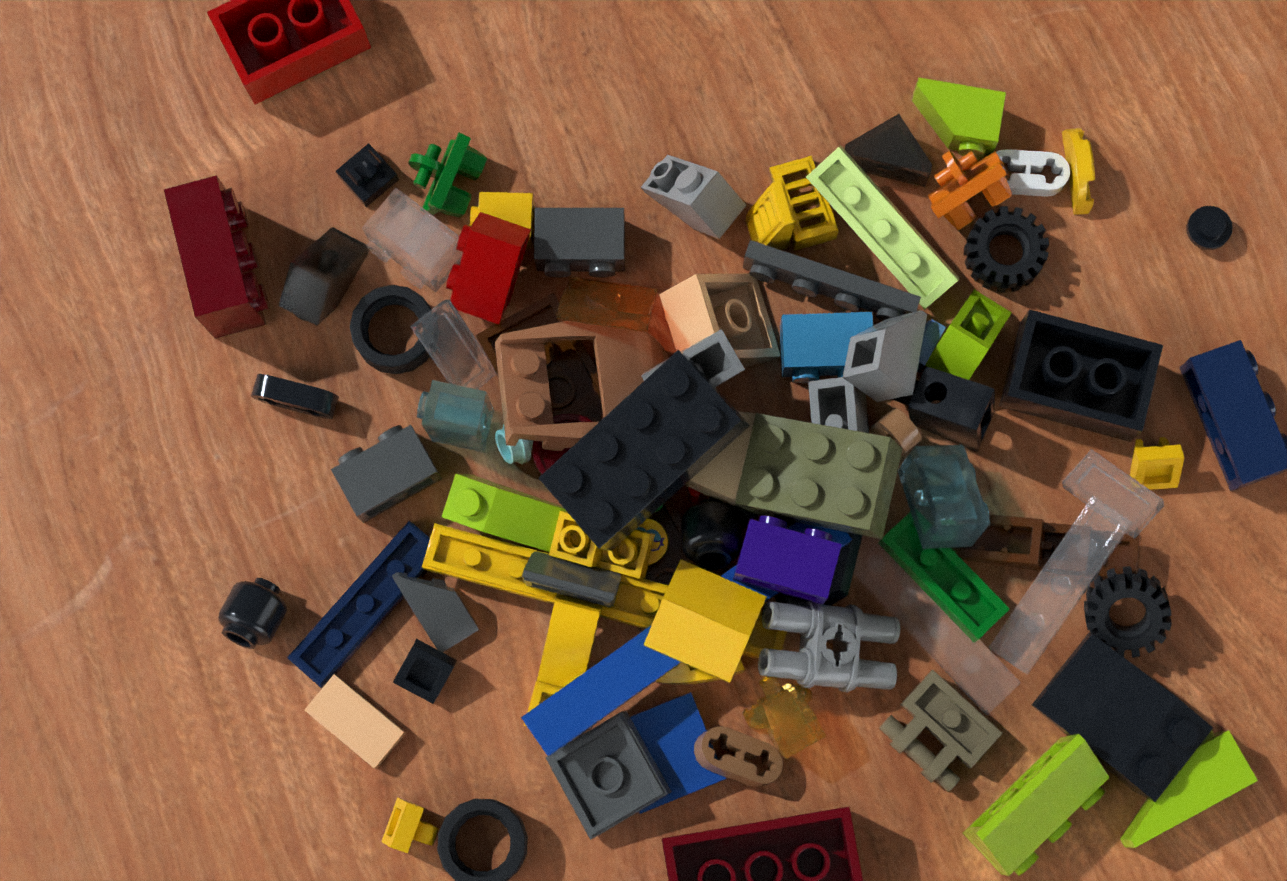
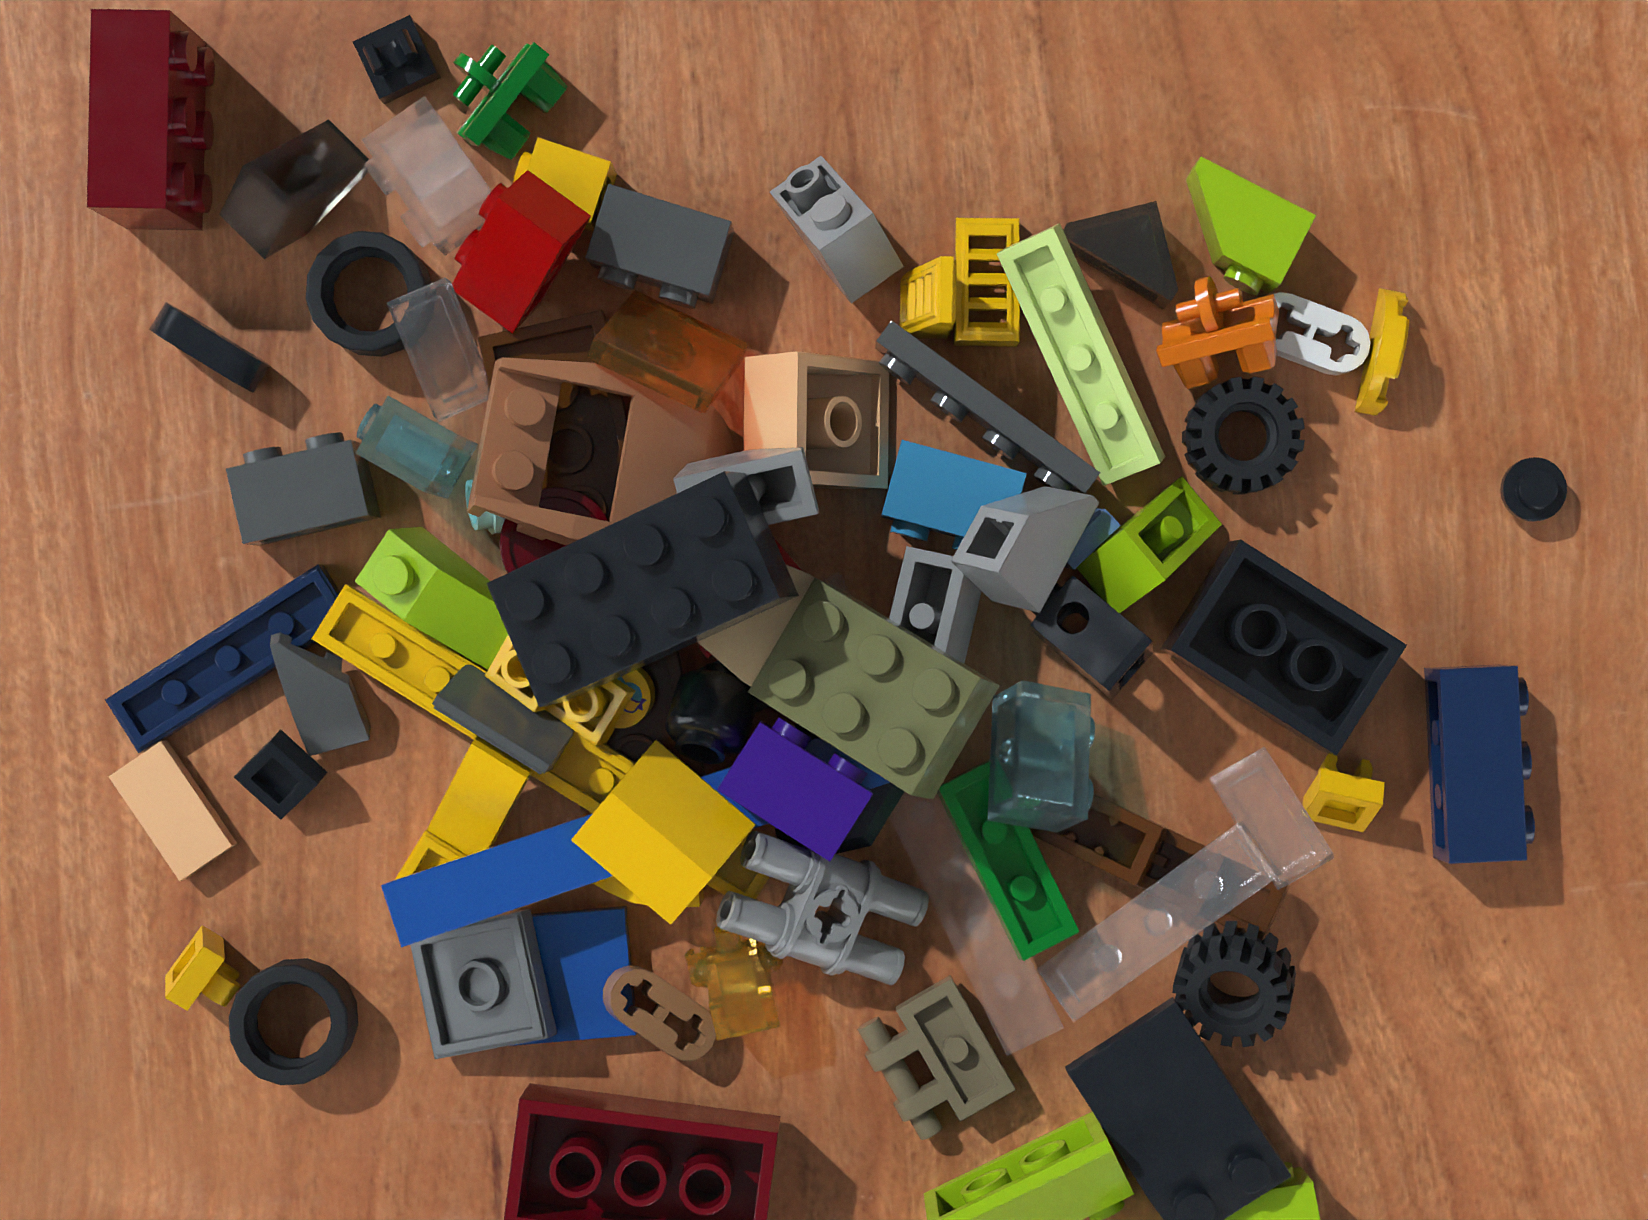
camera: 15 degrees right, 10 degrees up
(252, 613) = (73, 627): black head -> none
(899, 428) = (1003, 651): medium nougat beam -> none

